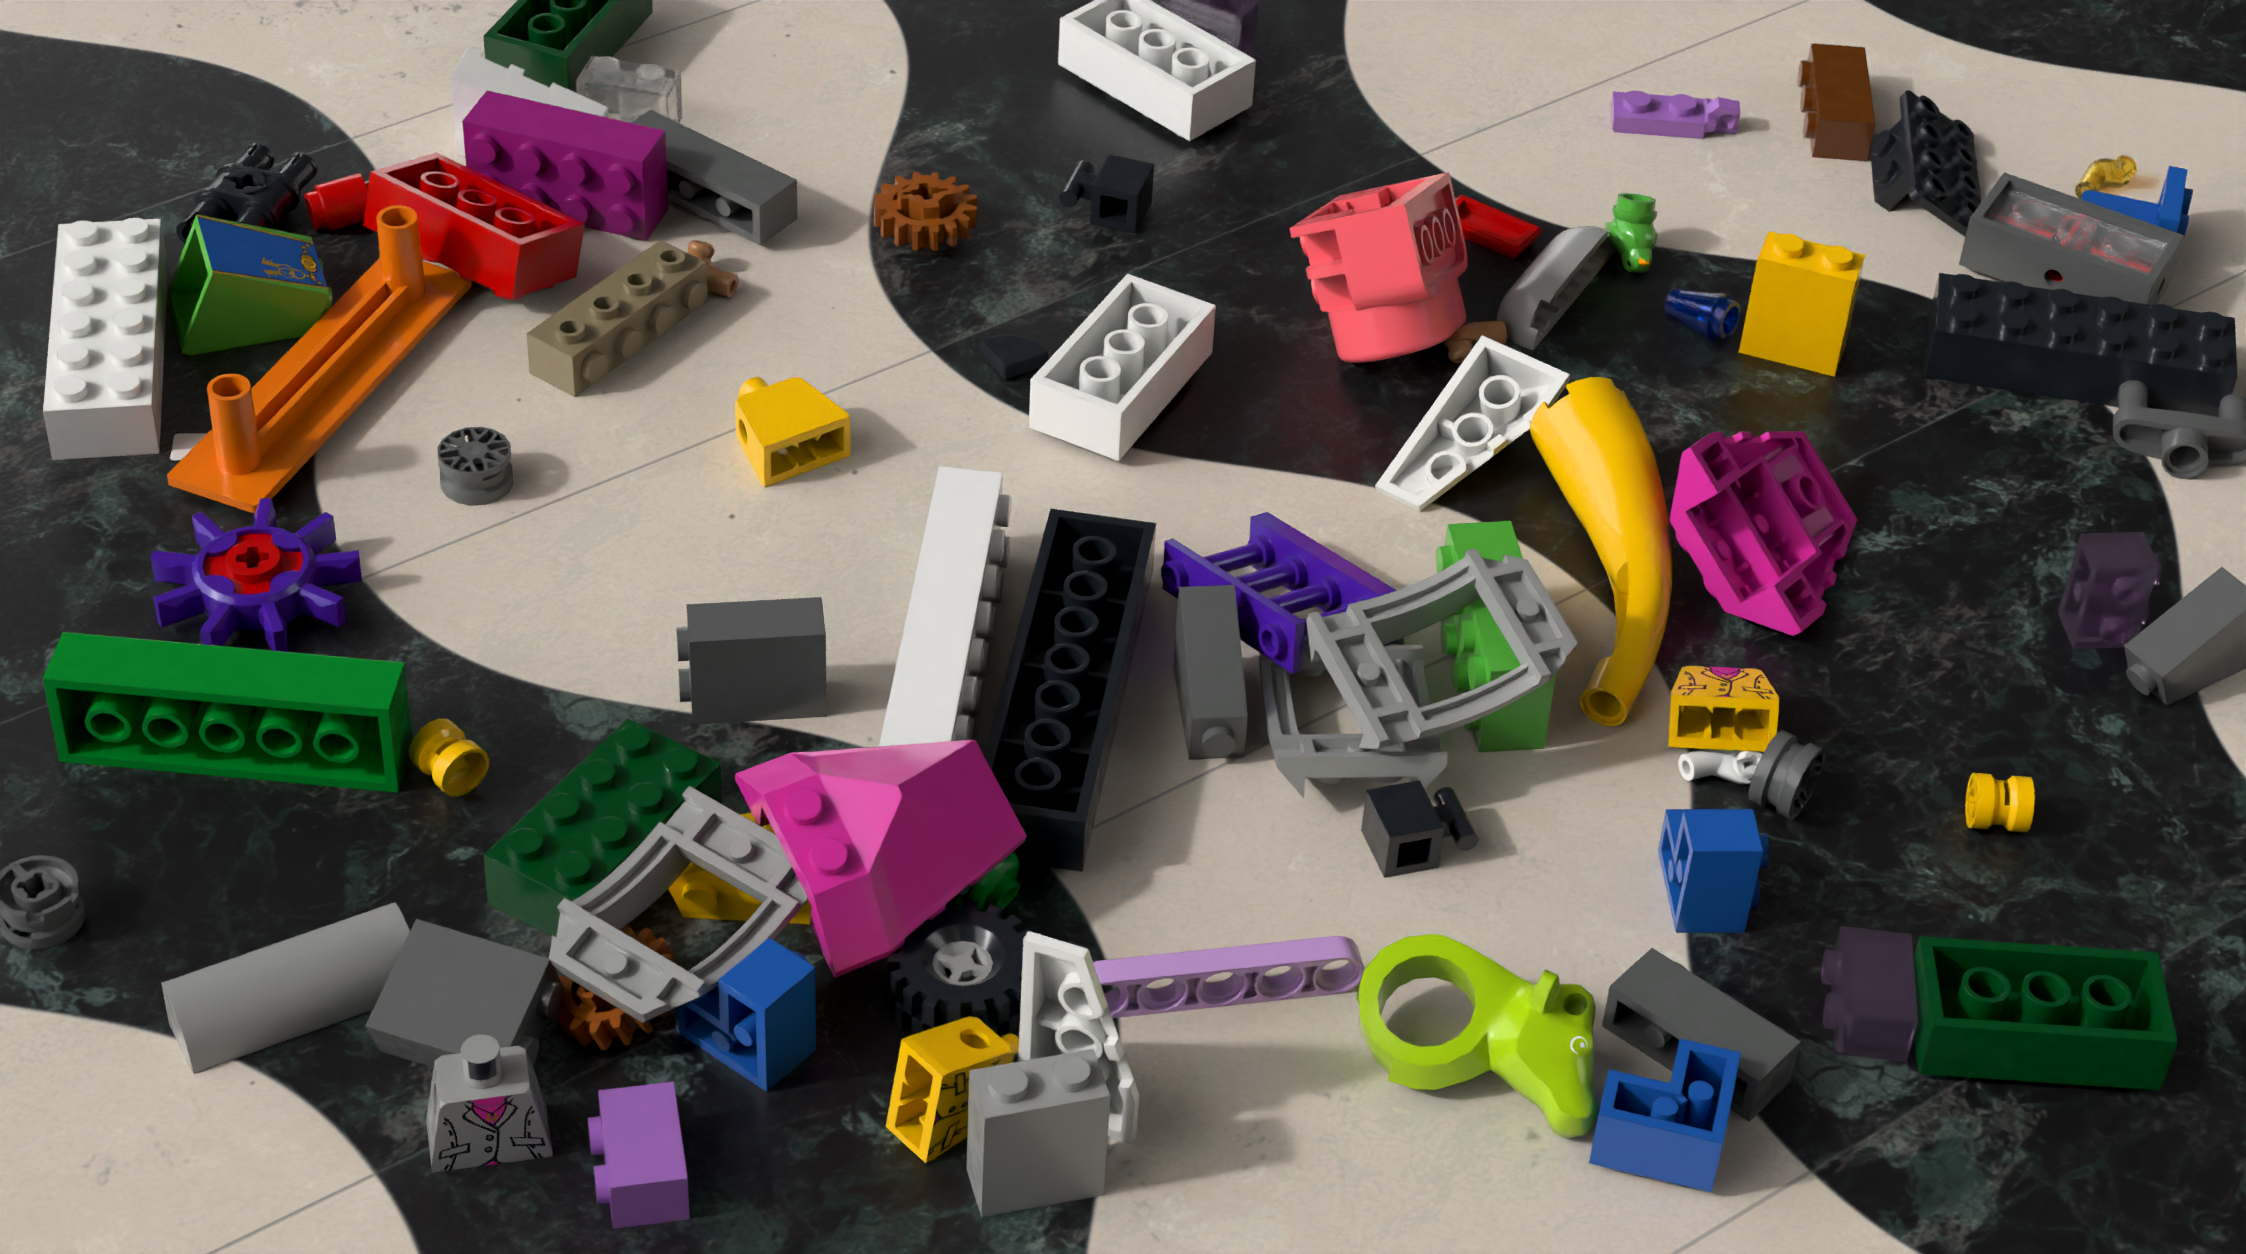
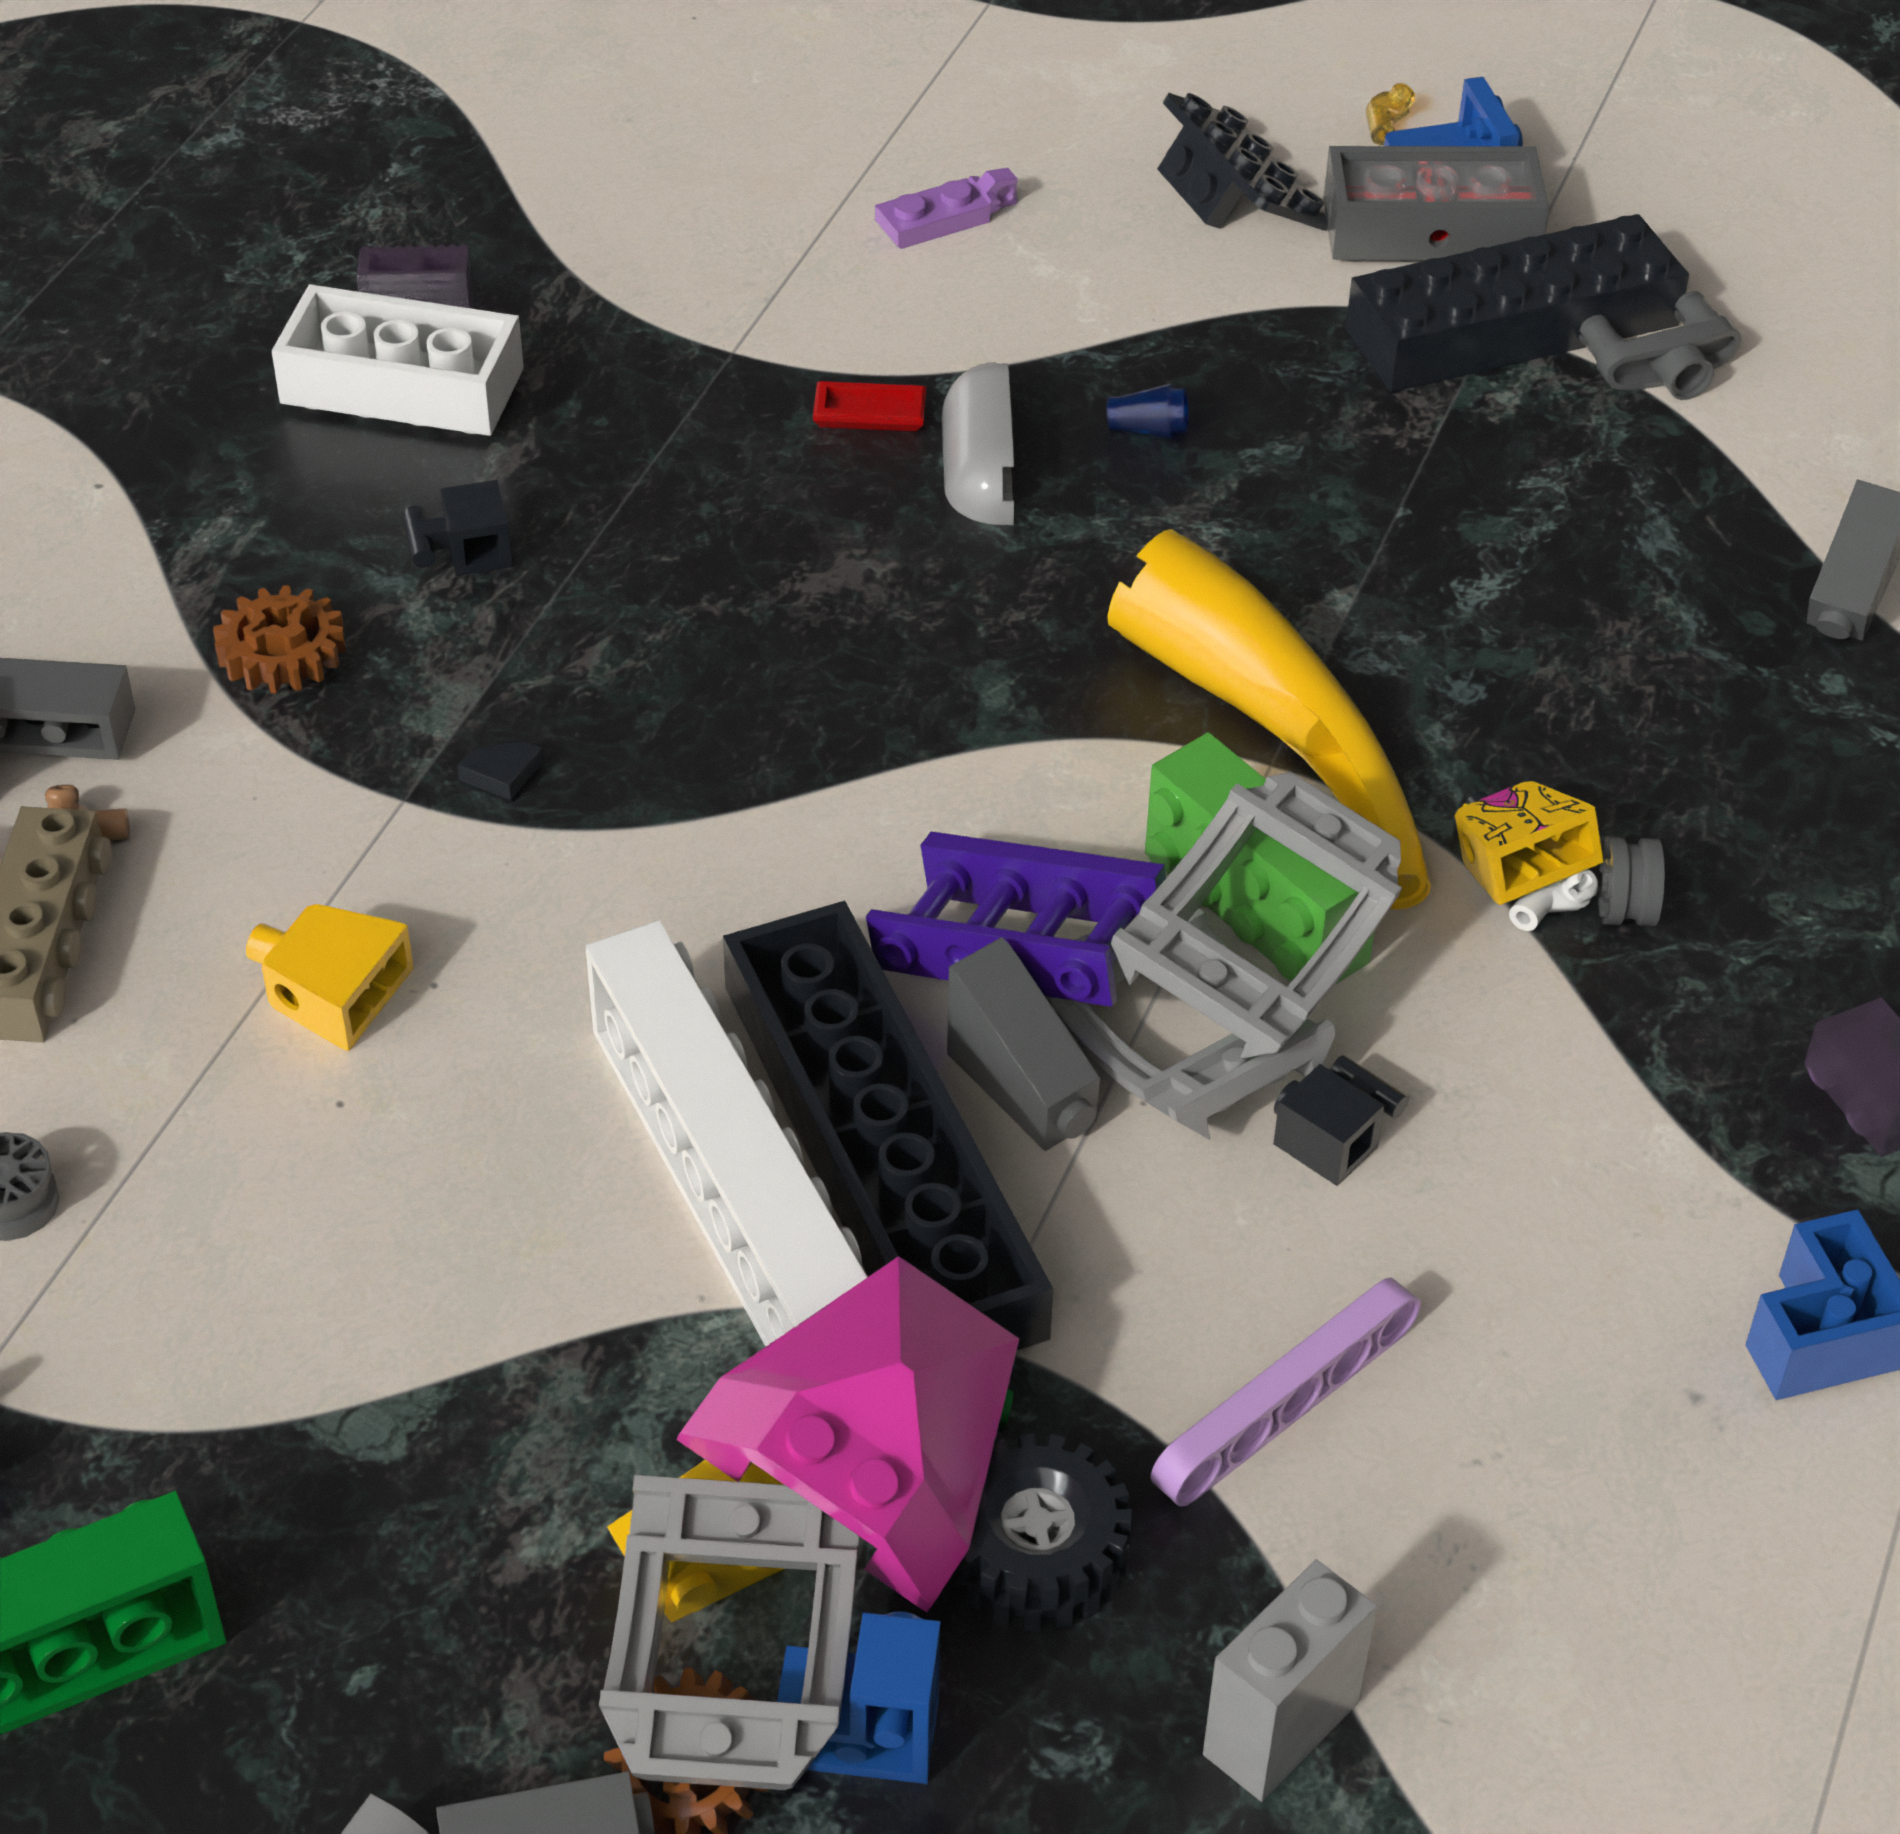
camera: 30 degrees left, 5 degrees up
(452, 760) = (268, 1571): yellow wheel -> none
(593, 822) = (525, 1575): dark green brick -> none
(754, 660) = (539, 1273): dark grey brick -> none
(933, 1082) = (1148, 1638): yellow torso -> none
(1069, 1013) = (1243, 1548): white wedge -> none
(1121, 367) = (644, 732): white brick -> none
(1388, 267) = (840, 499): coral brick -> none
(1468, 335) = (950, 534): medium nougat arm -> none
(1471, 421) = (1045, 628): white wedge -> none
(1520, 1030) = (1630, 1294): lime animal -> none
(1633, 230) = (1020, 346): bright green animal -> none
(1664, 1002) = (1754, 1196): dark grey brick -> none
(1712, 868) = (1645, 1016): blue brick -> none
(1762, 525) = (1408, 633): dark pink wedge -> none
(1801, 303) = (1257, 364): yellow brick -> none
(1837, 102) = (1097, 130): reddish brown brick -> none
(1999, 802) = (1829, 813): yellow wheel -> none
(2108, 589) = (1754, 547): clear purple brick -> none

